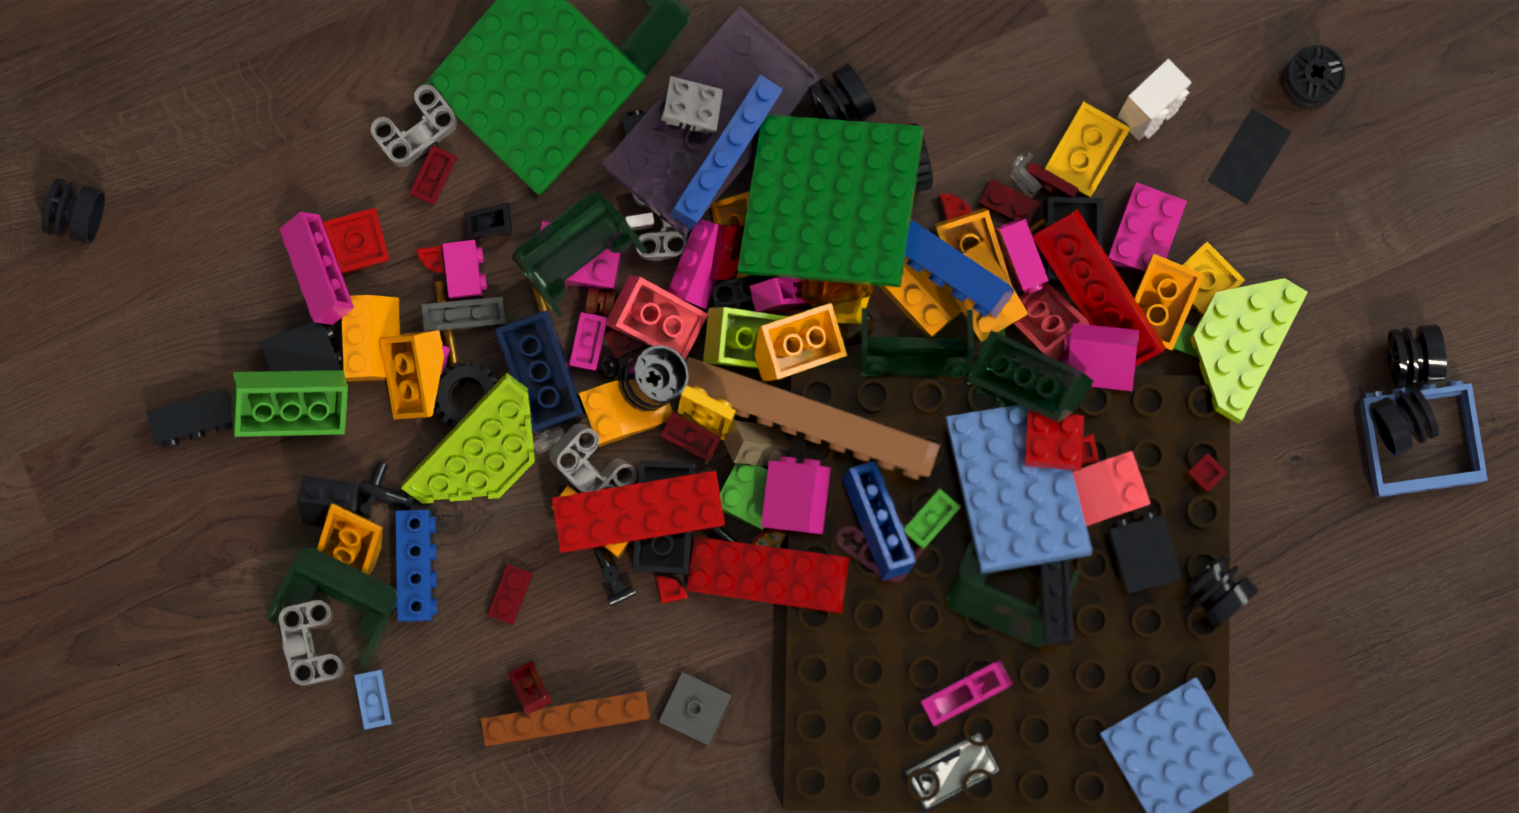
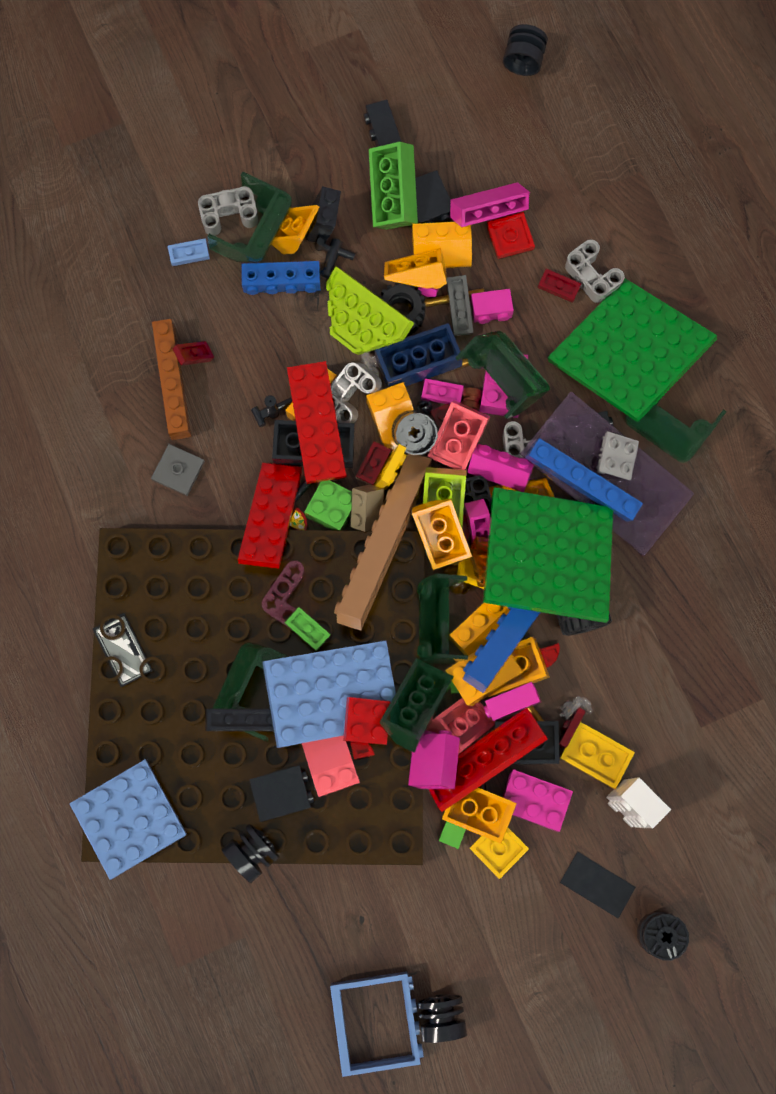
camera: 90 degrees right, 5 degrees down
(432, 258) = (500, 284): red tile -> none
(489, 222) = (527, 323): black slope -> none
(510, 594) = (261, 342): dark red plate -> none
(641, 221) = (530, 426): white tile -> none
(670, 589) = (263, 452): red tile -> none
(727, 252) = (509, 482): dark red plate -> none
(795, 495) = (326, 531): dark pink brick -> none
(844, 98) = (628, 568): black wheel -> none
(879, 520) = (305, 589): blue brick -> none
(966, 693) = (178, 658): dark pink slope -> none
(1008, 202) = (554, 696): dark red plate -> none
(1206, 472) = (344, 844): dark red plate -> none
(1241, 338) = (451, 874): lime plate -> none
(1408, 417) = (389, 1008): black wheel -> none

